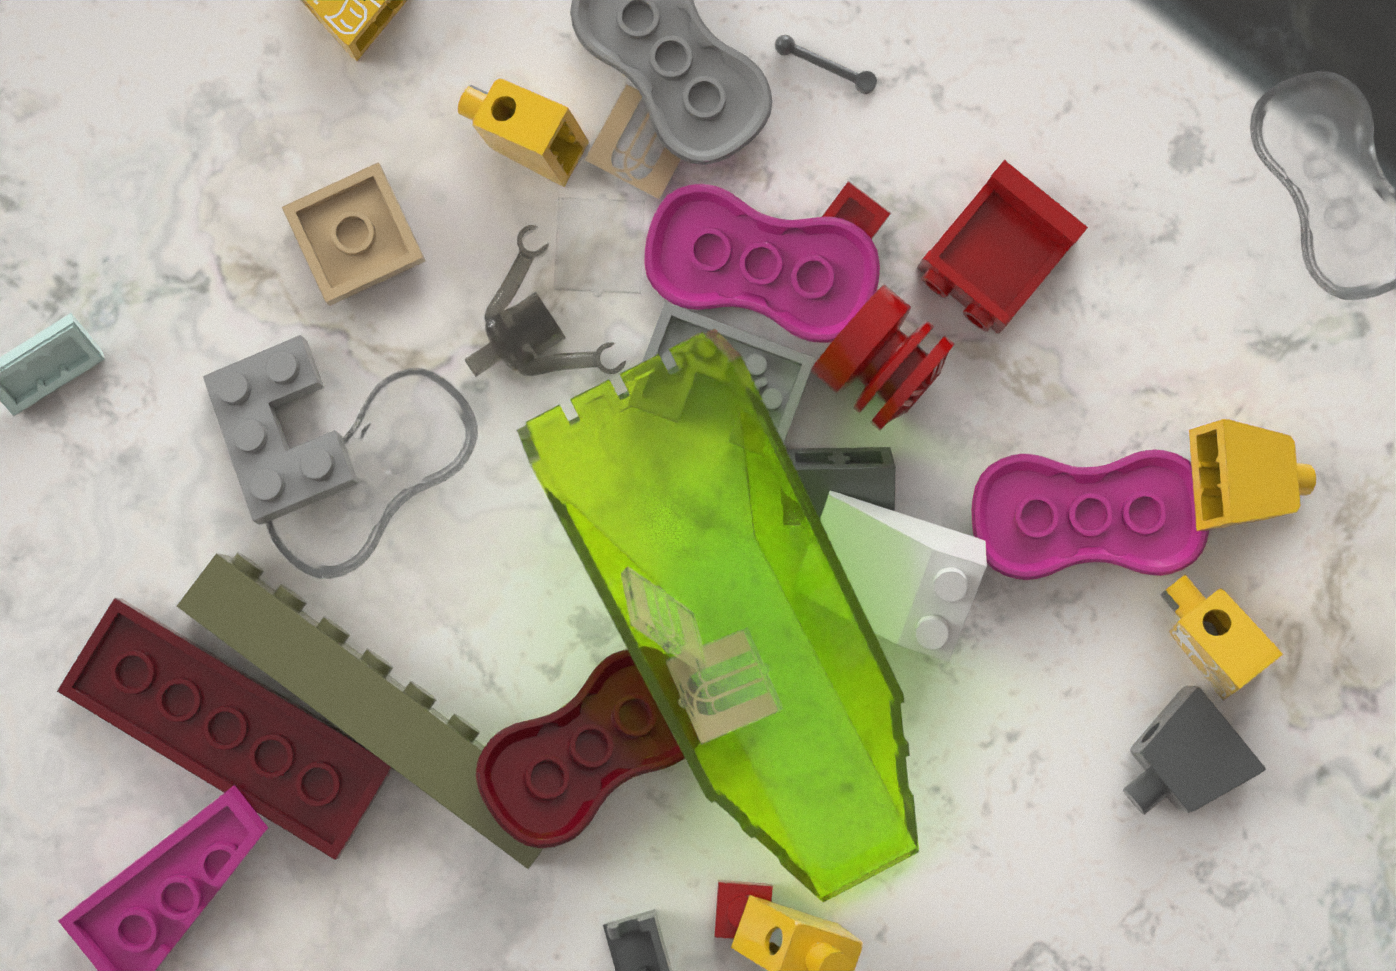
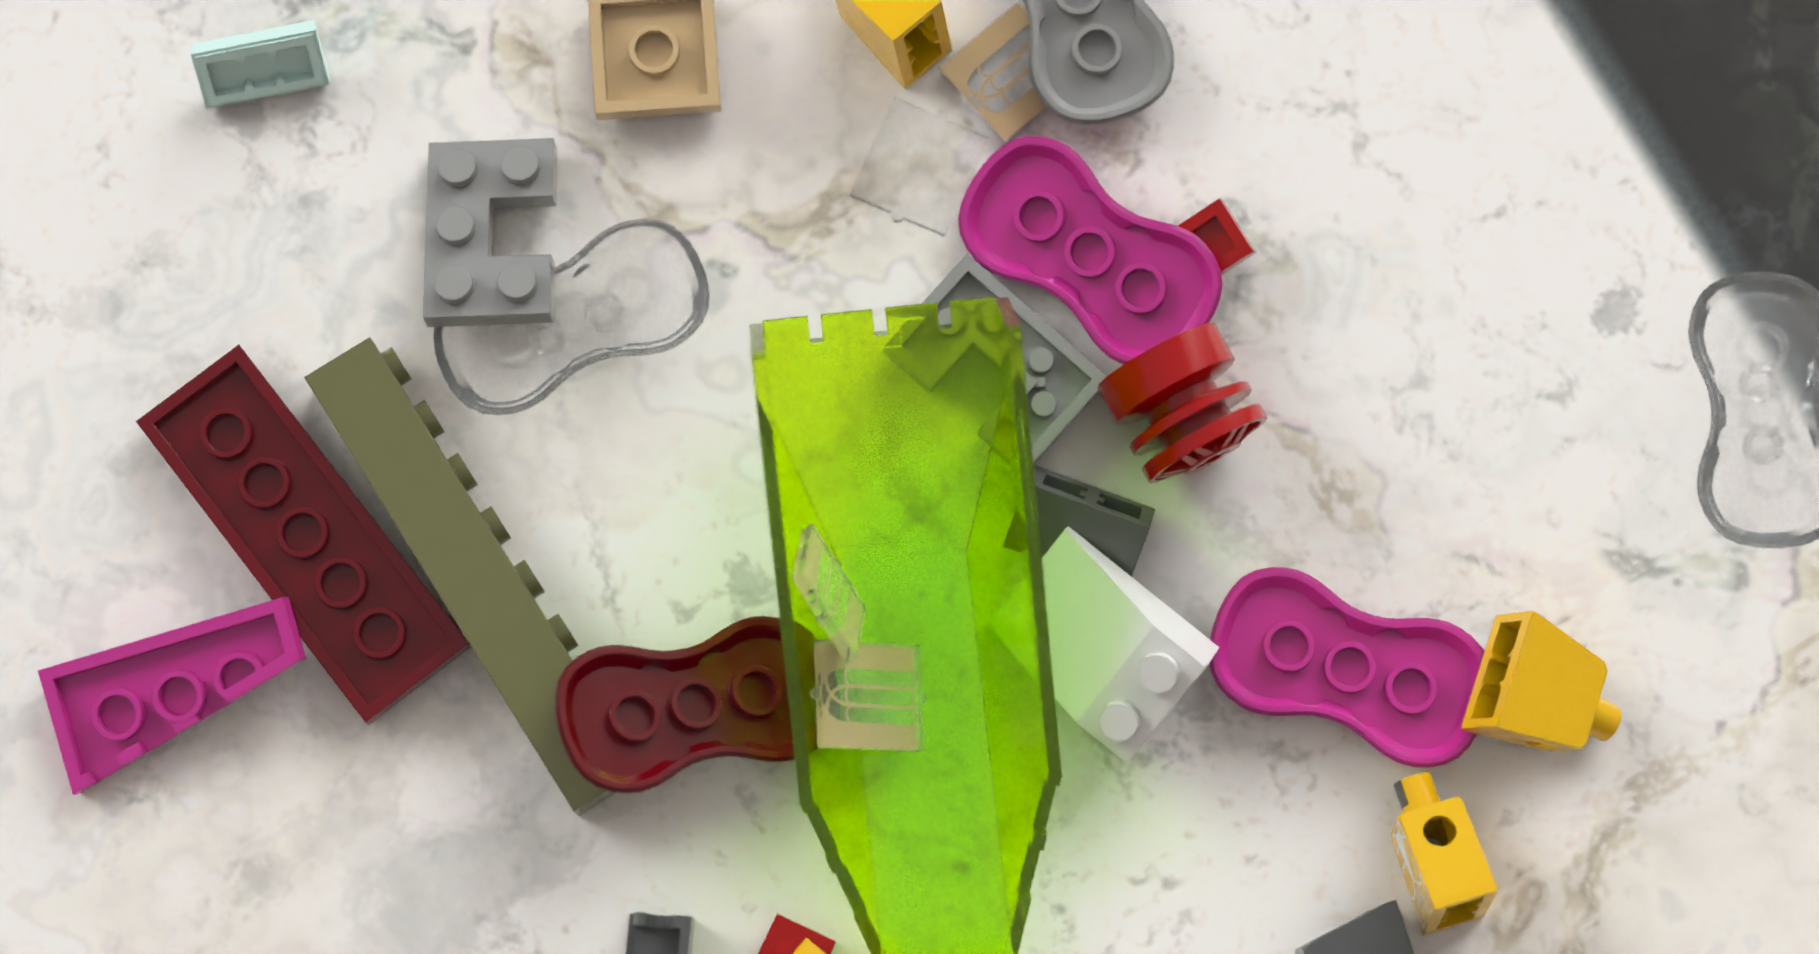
camera: 20 degrees right, 5 degrees down
(527, 329) = (805, 225): clear smoke piece -> none
(864, 81) = (1283, 98): dark grey hinge -> none
(1000, 248) = (1362, 338): red panel -> none

